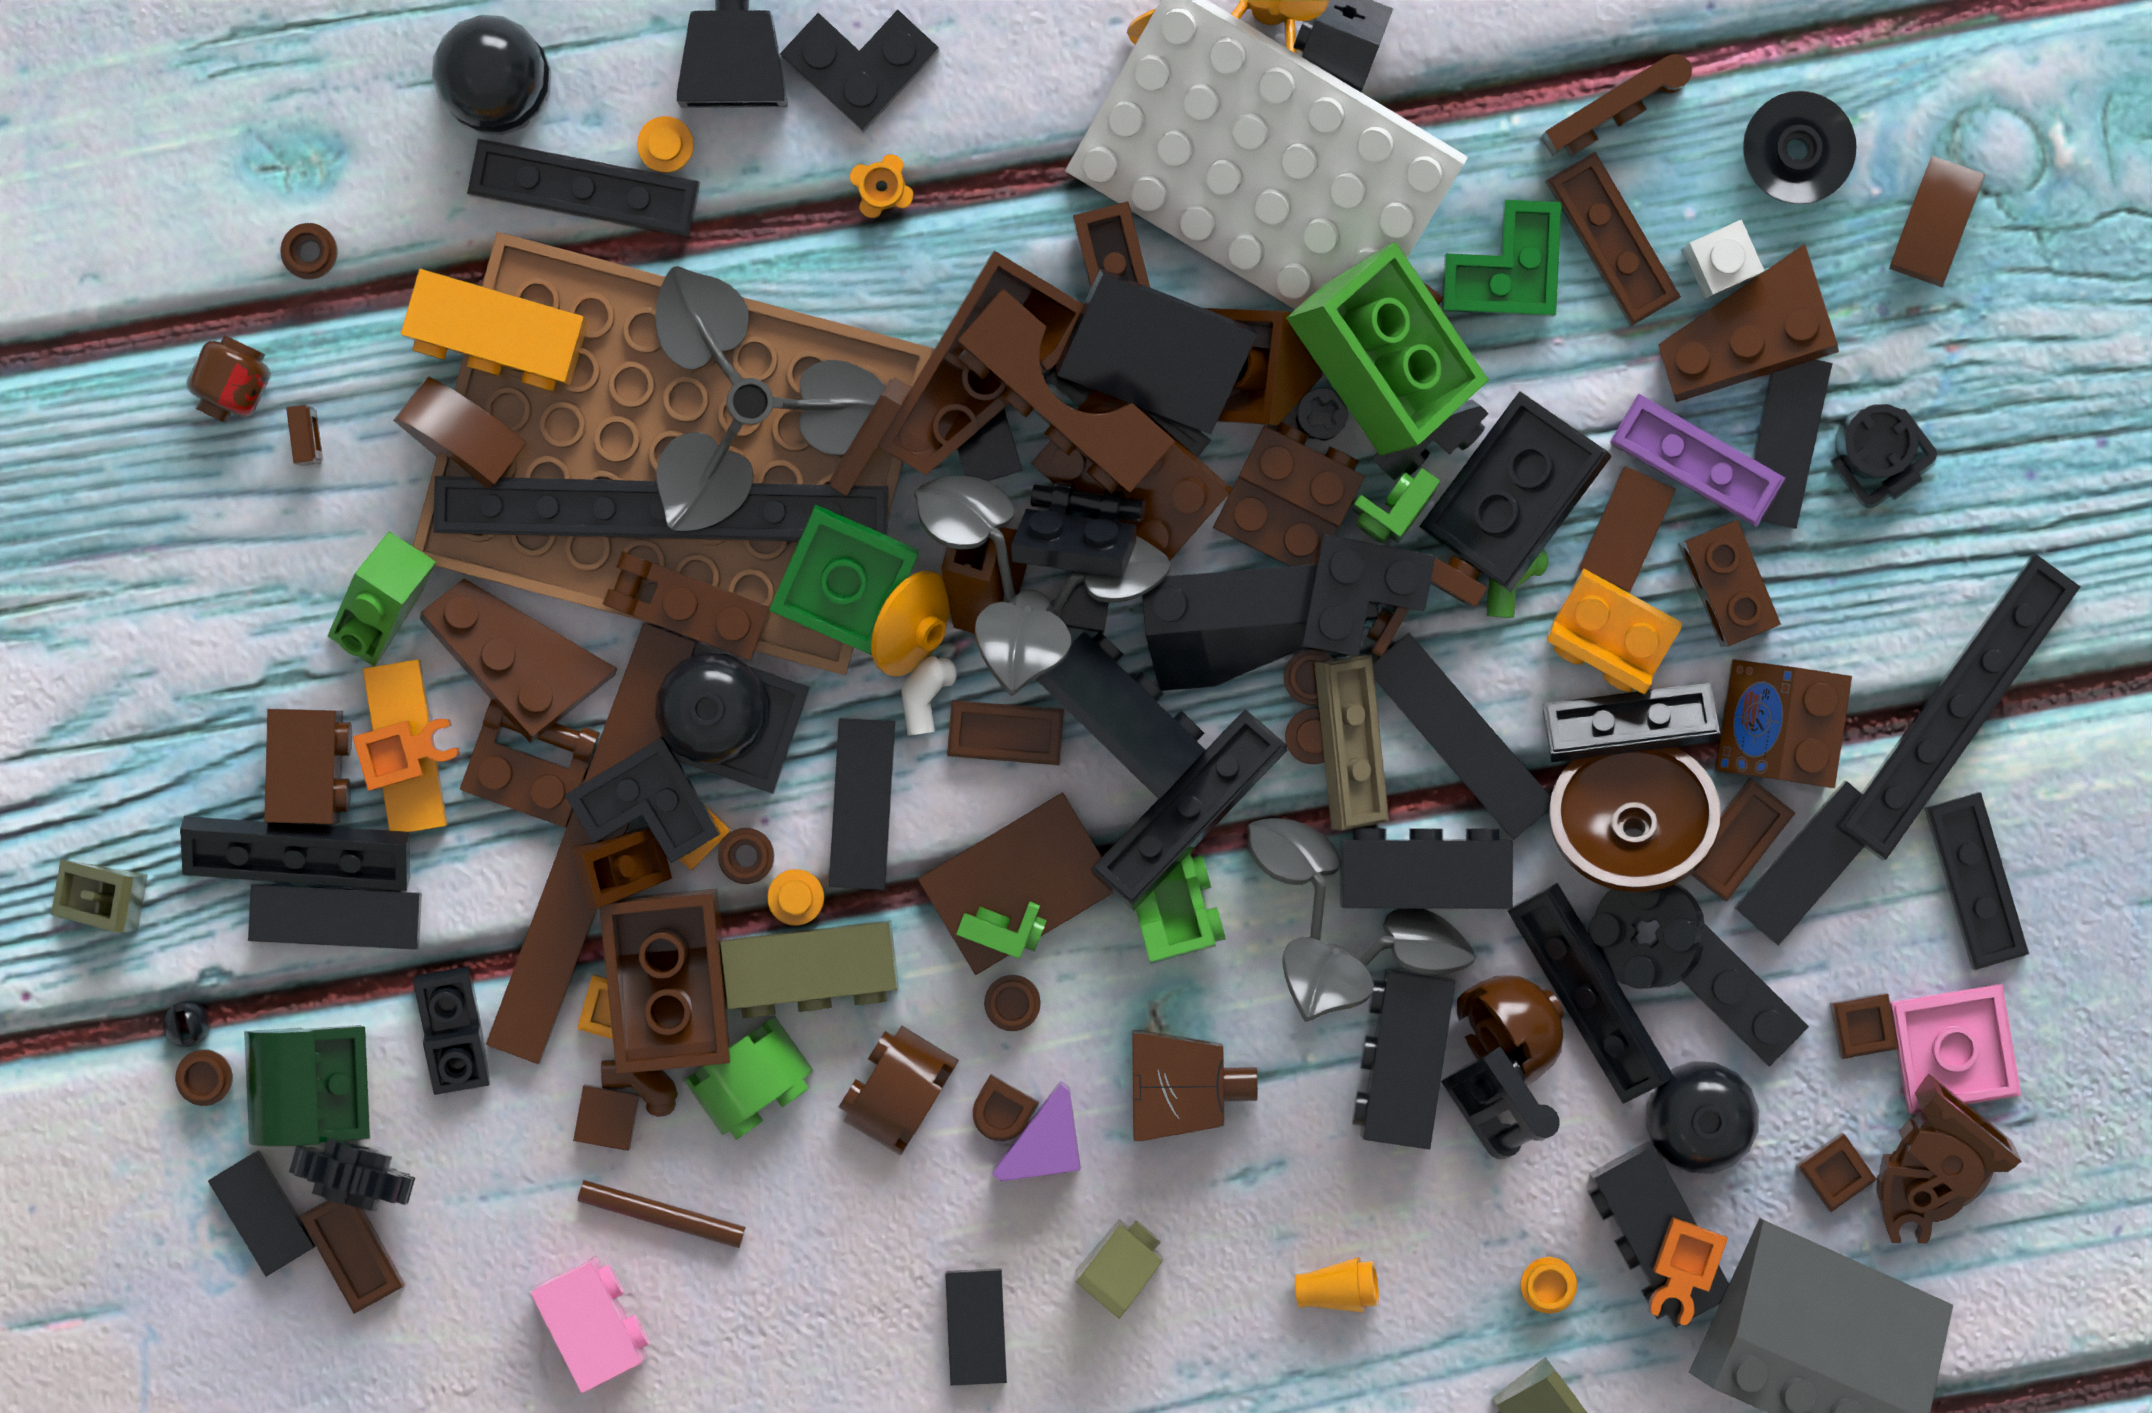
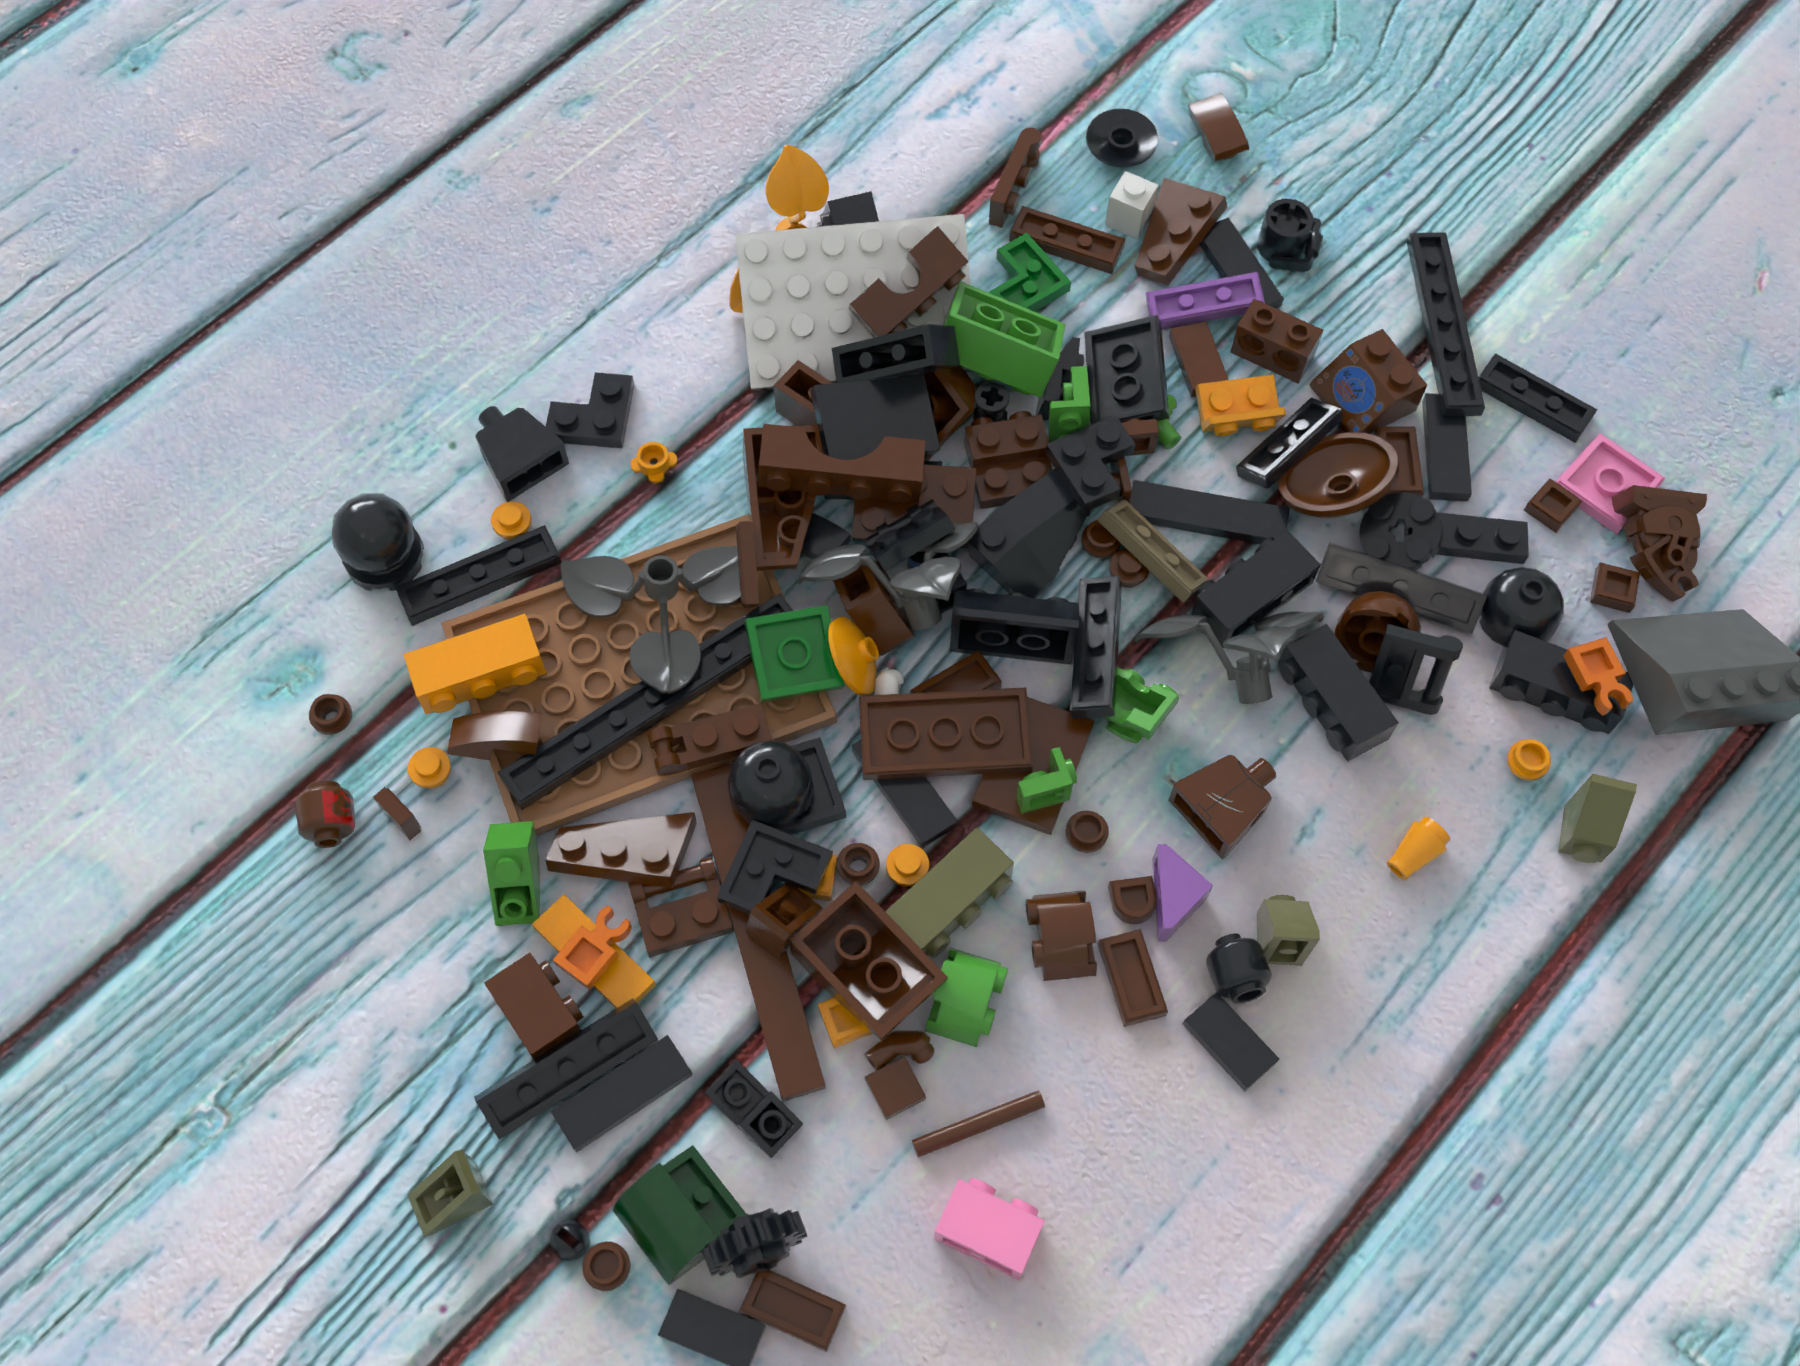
camera: 40 degrees left, 25 degrees down
(373, 400) = (429, 767): none -> light orange plate
(932, 1188) = (1132, 978): none -> reddish brown tile
(944, 785) = (945, 733): none -> reddish brown tile
(1040, 1267) = (1238, 968): none -> black head
(1232, 298) = (897, 354): none -> black brick
(1276, 222) = (937, 266): none -> reddish brown arch

